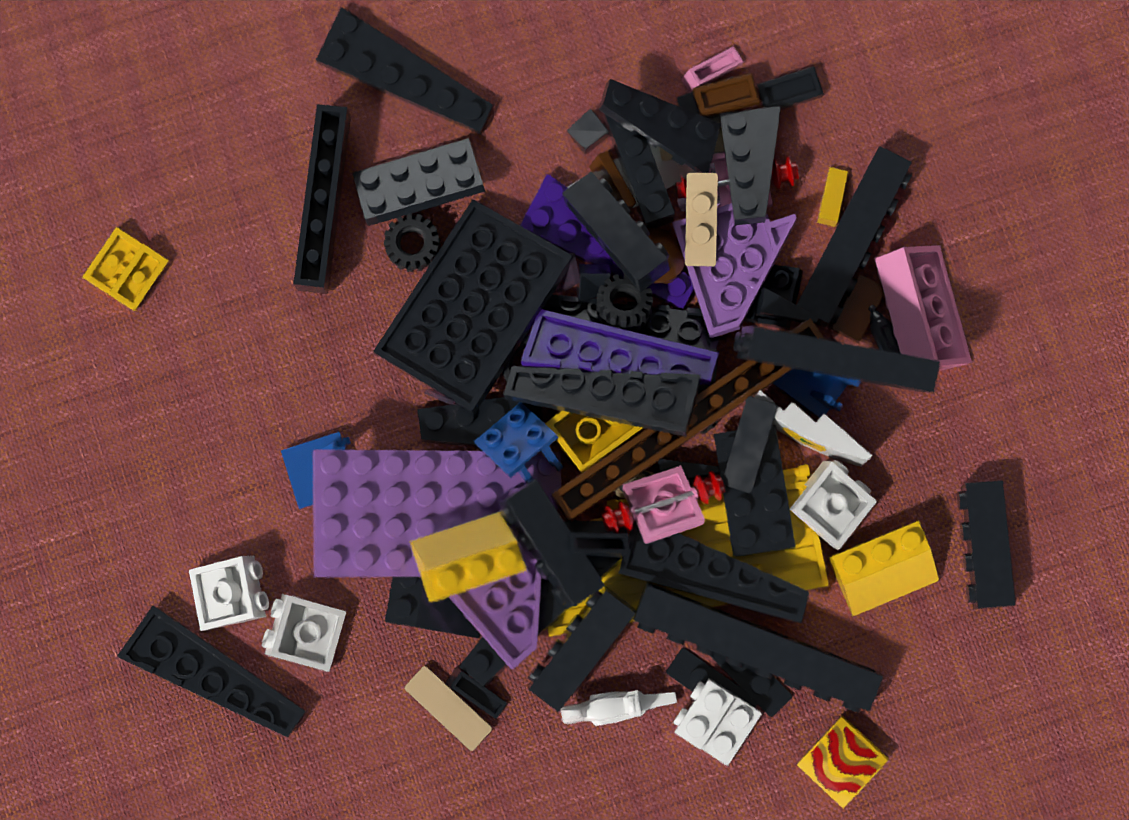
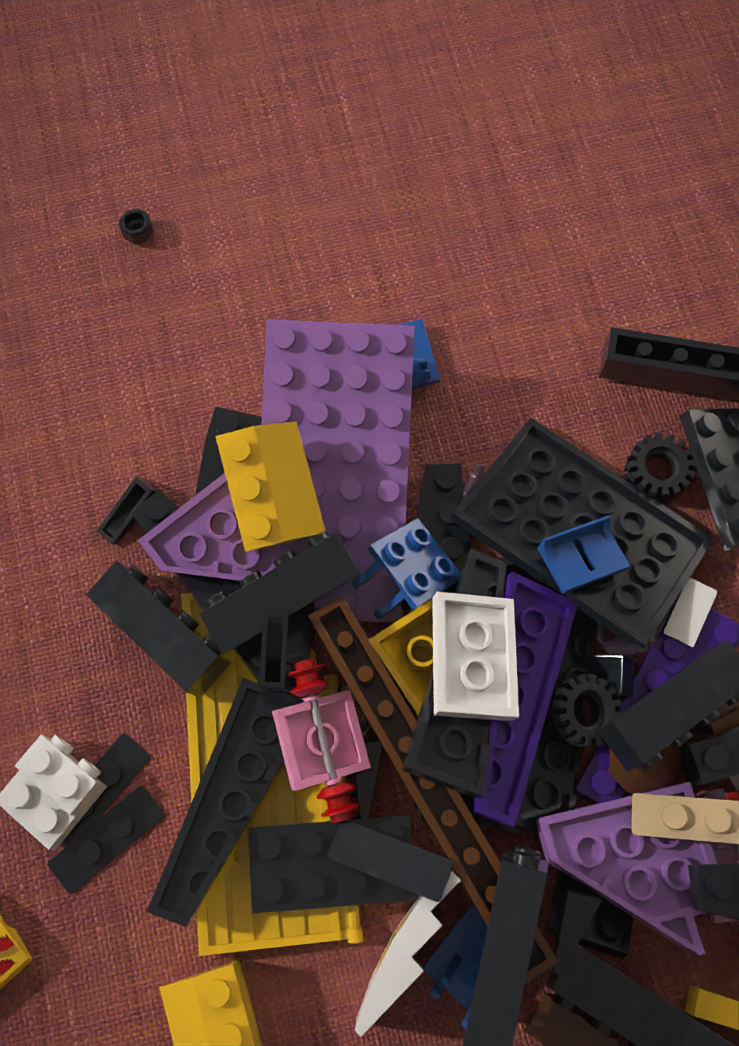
camera: 90 degrees right, 10 degrees down
(125, 269) = (628, 179): yellow slope -> none
(192, 663) = (203, 221): black wing -> none
(195, 724) = (136, 226): none -> black tile
(228, 592) = (270, 260): white plate -> none
(303, 632) = (218, 330): white plate -> none
(448, 708) = (114, 478): tan piece -> none
(494, 293) = (597, 546): none -> blue piece
(537, 219) = (690, 612): none -> white sticker
(595, 386) = (474, 657): none -> white plate
(614, 707) = (86, 666): white animal -> none
(758, 647) = (125, 858): black brick -> none
(833, 503) = (306, 973): white plate -> none

